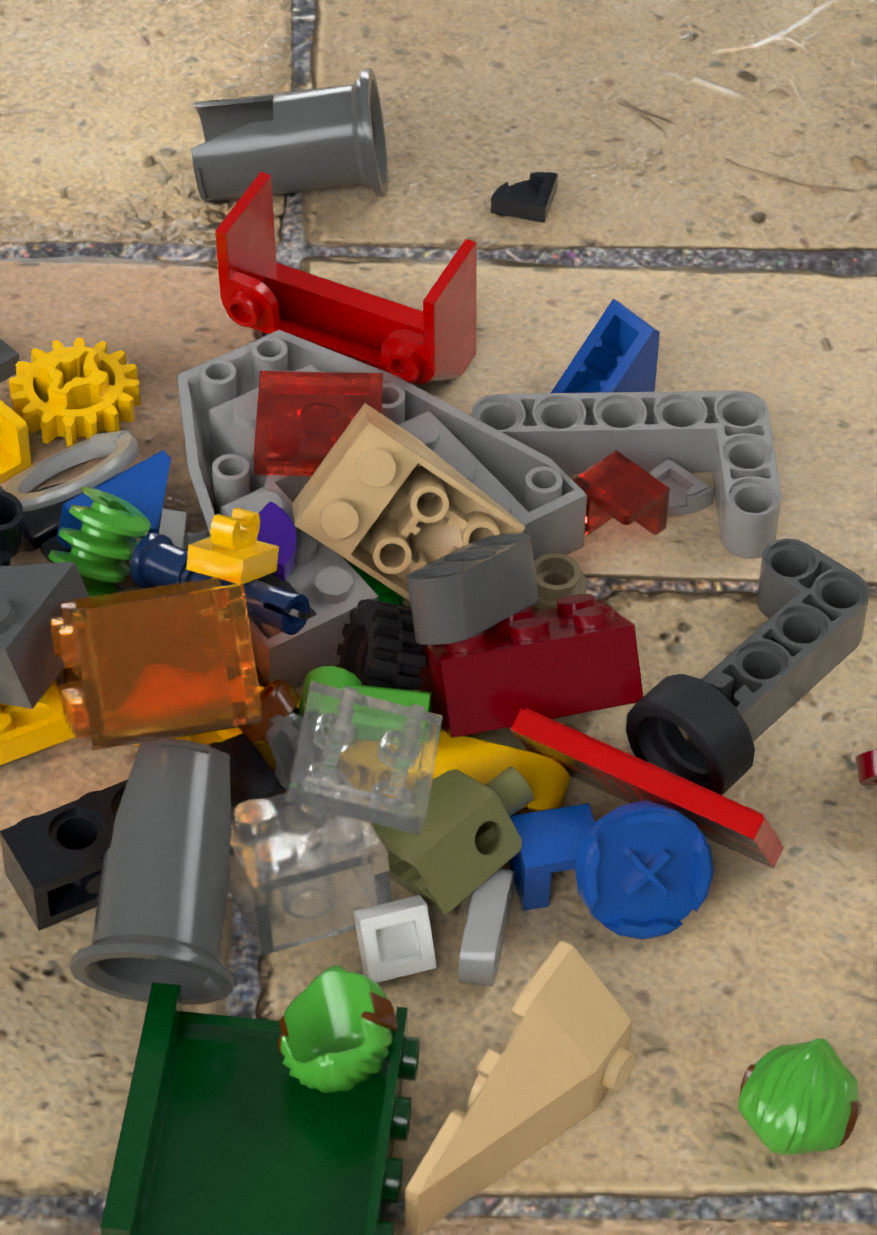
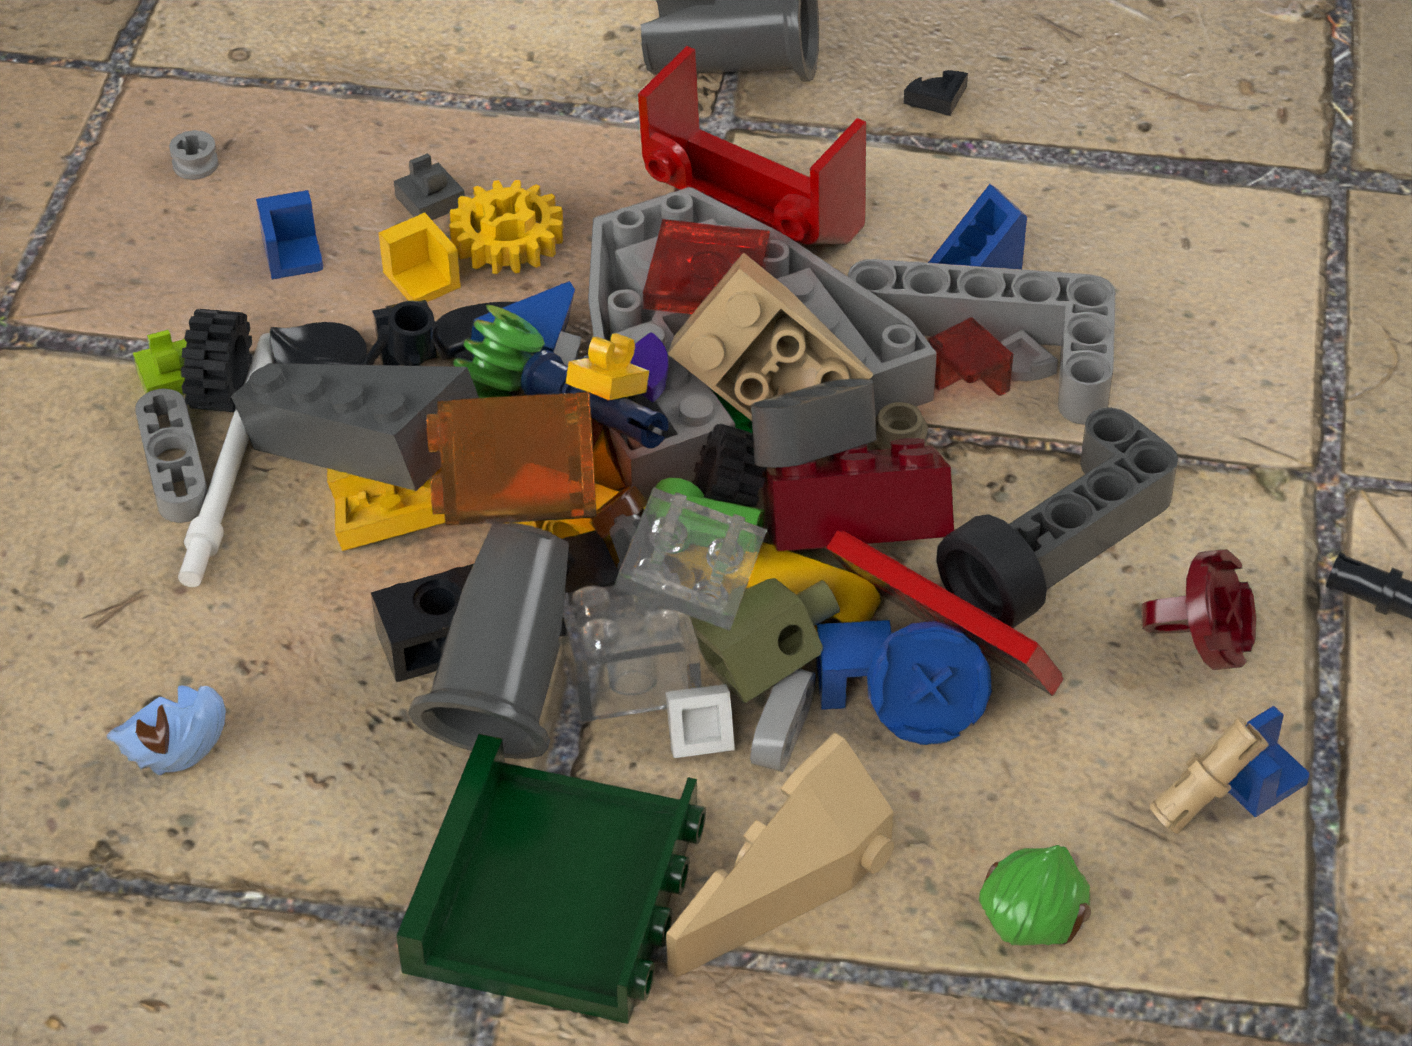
camera: 10 degrees right, 0 degrees up
(118, 448) = (525, 277): light grey piece -> none
(337, 1031) = (630, 793): bright green hair -> none

